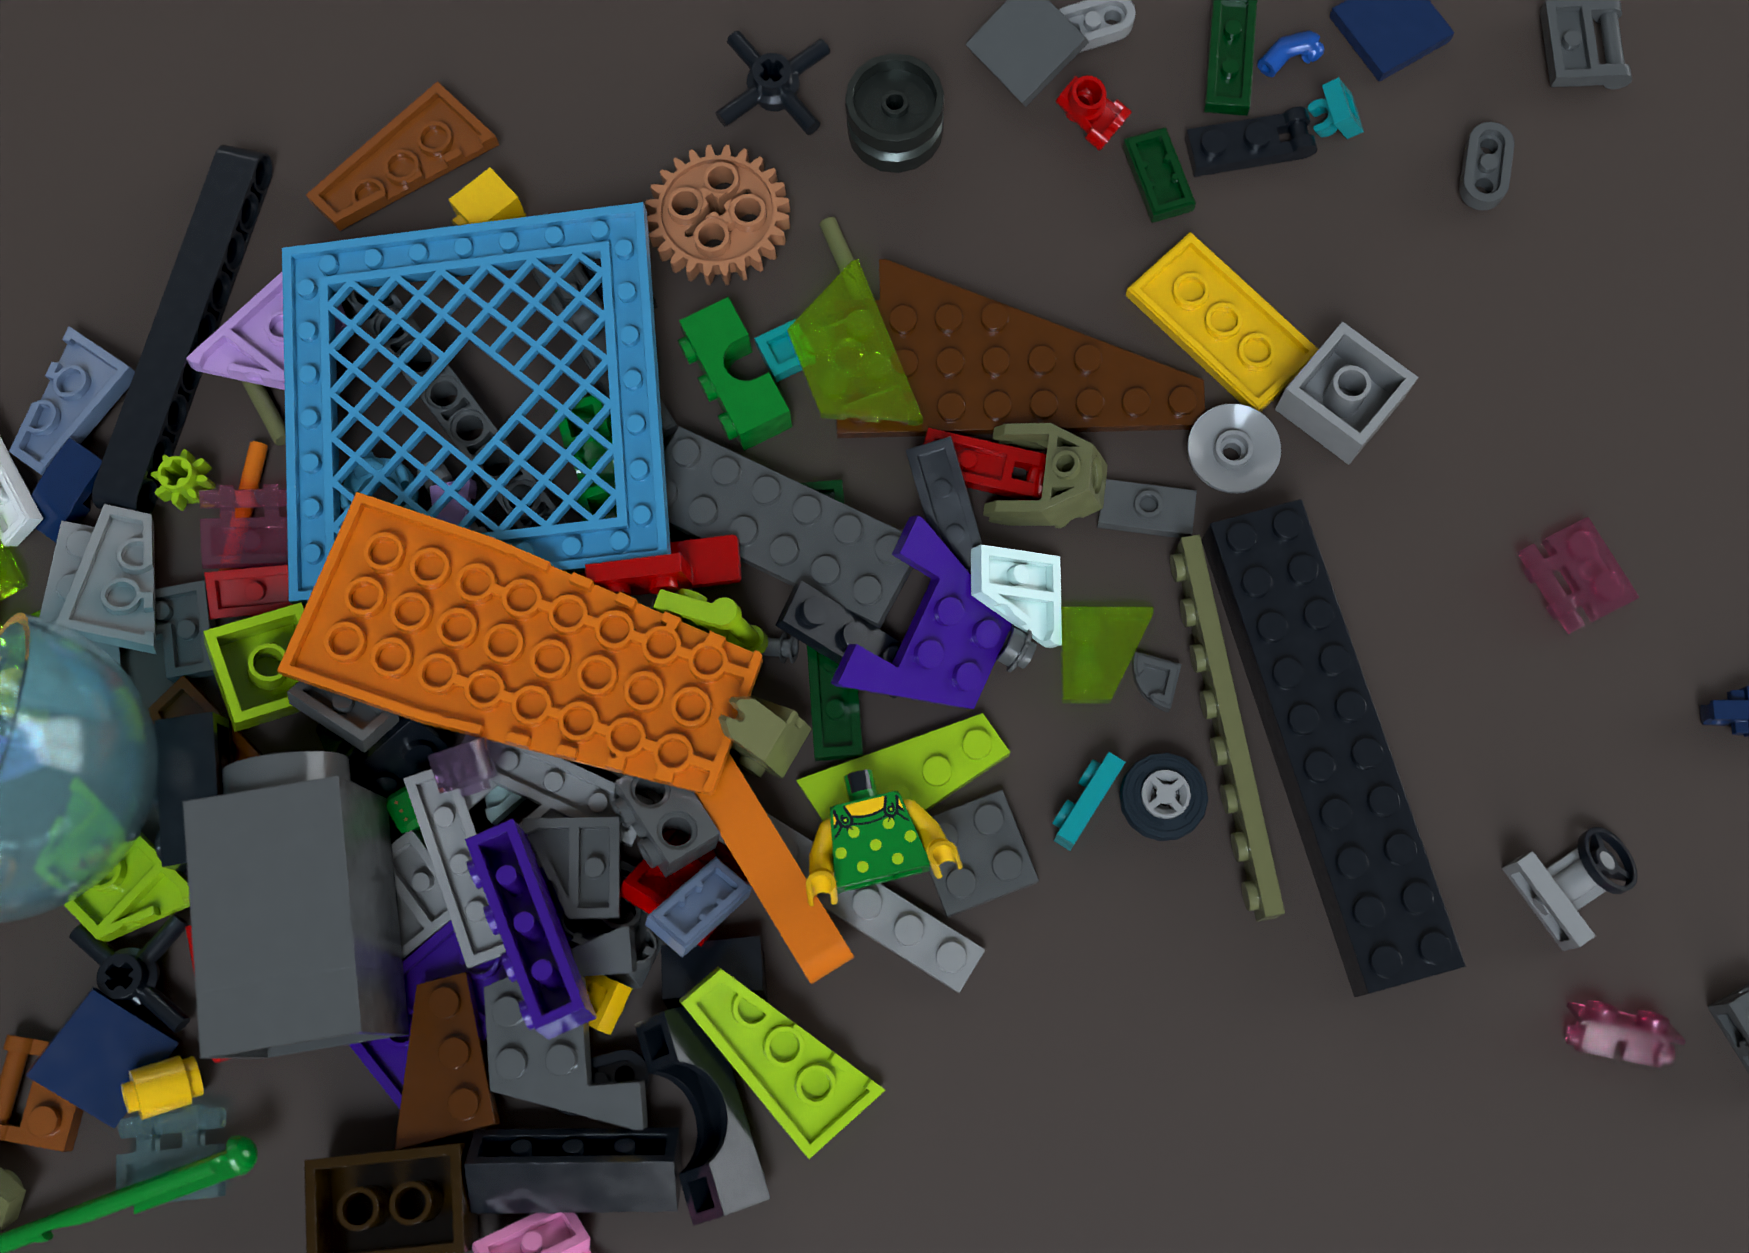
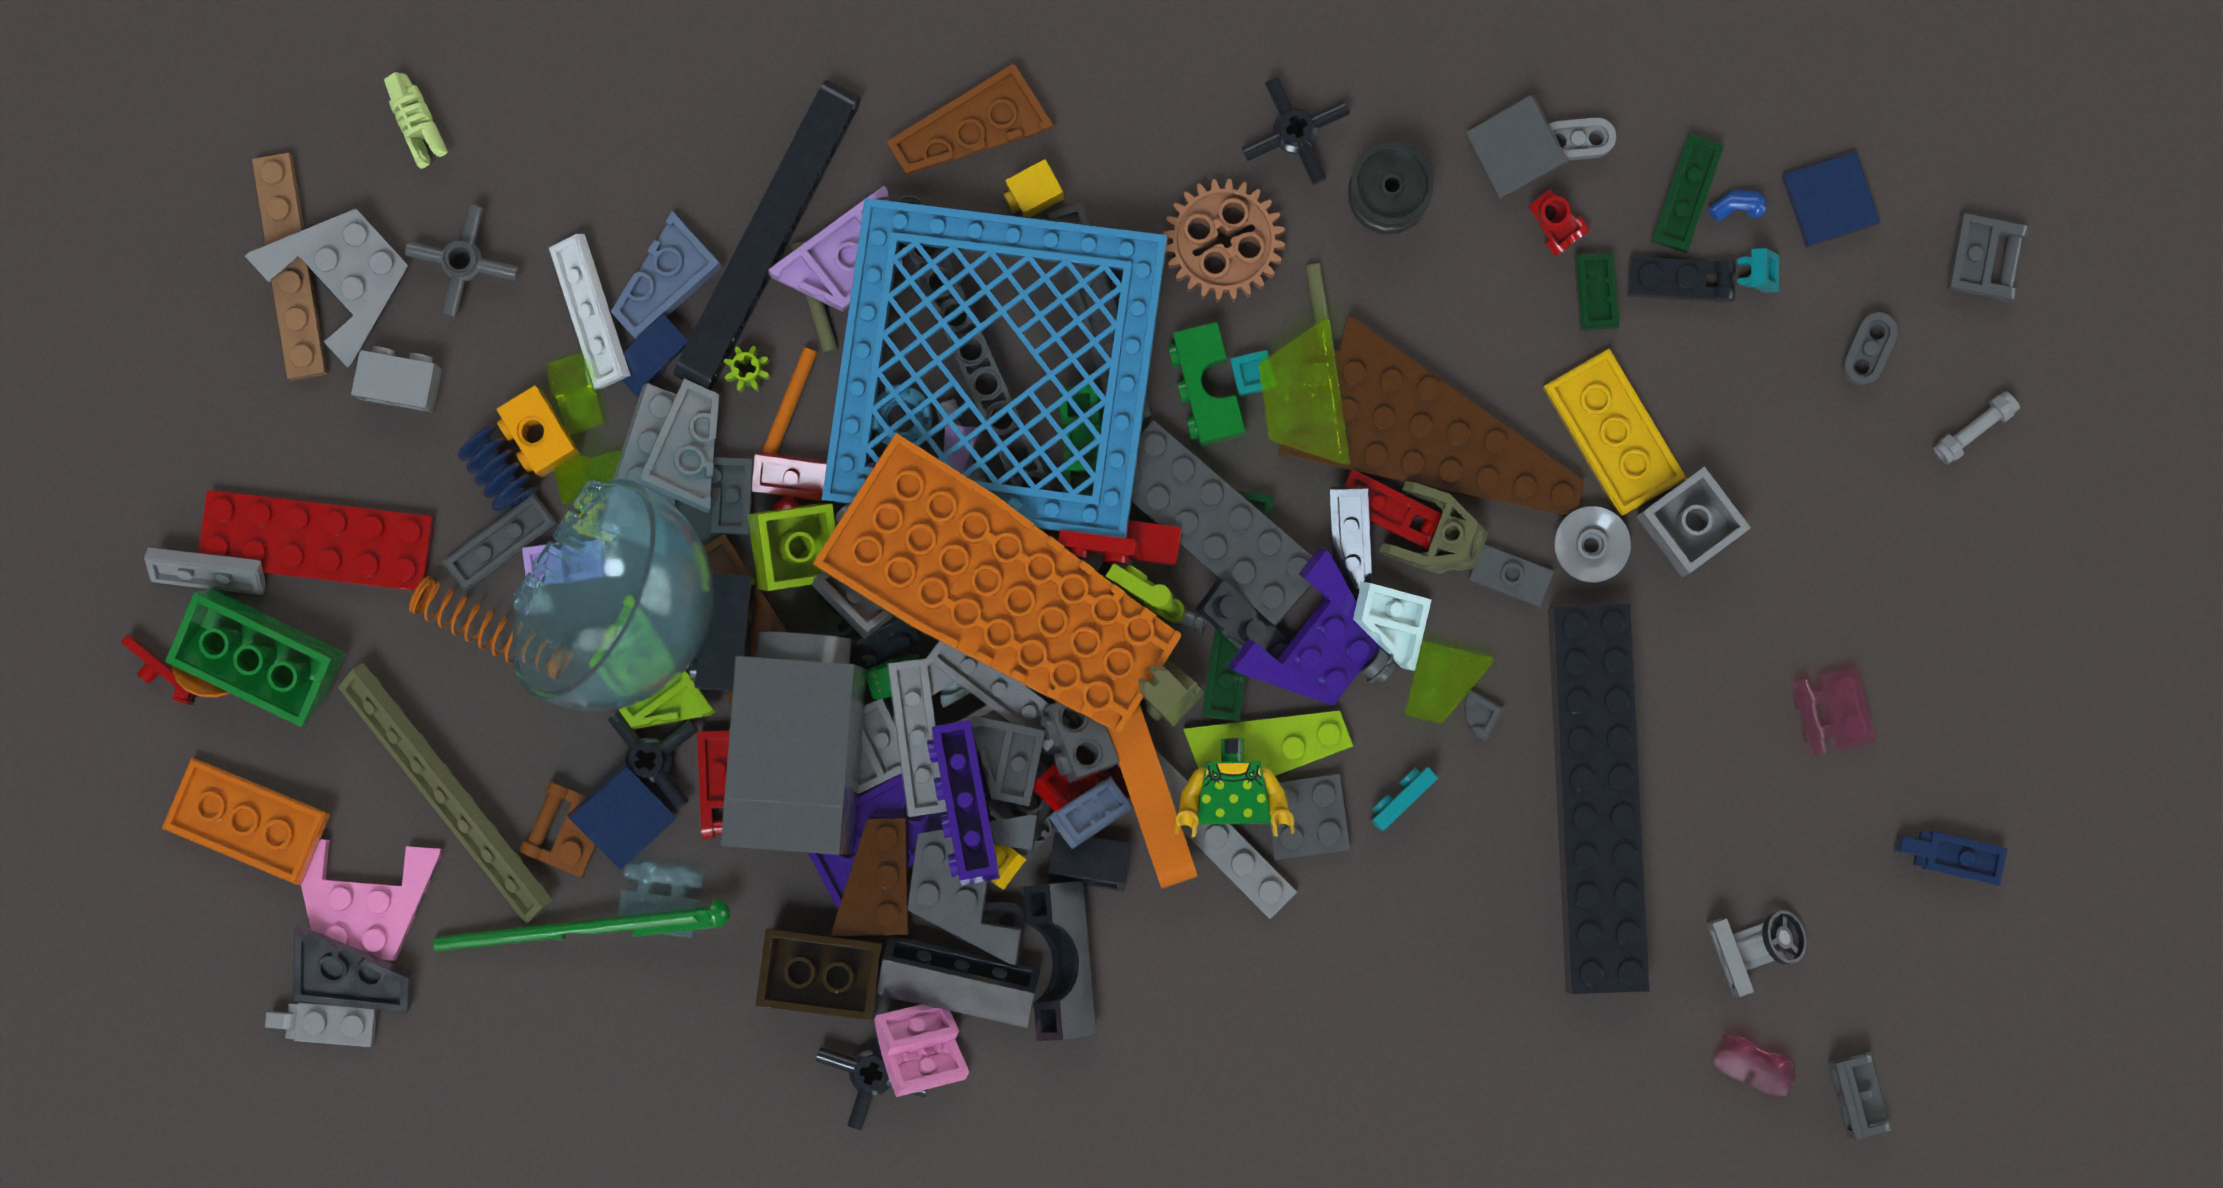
camera: 15 degrees right, 10 degrees up
(162, 1086) = (663, 848): yellow brick -> none
(244, 541) = (794, 435): clear pink plate -> none
(464, 767) = (938, 669): clear purple plate -> none
(788, 1069) = (1129, 945): lime wing -> none
(1176, 784) = (1474, 803): black wheel -> none
(1229, 745) = (1524, 748): olive plate -> none
(1654, 196) = (2001, 408): none -> light grey bar

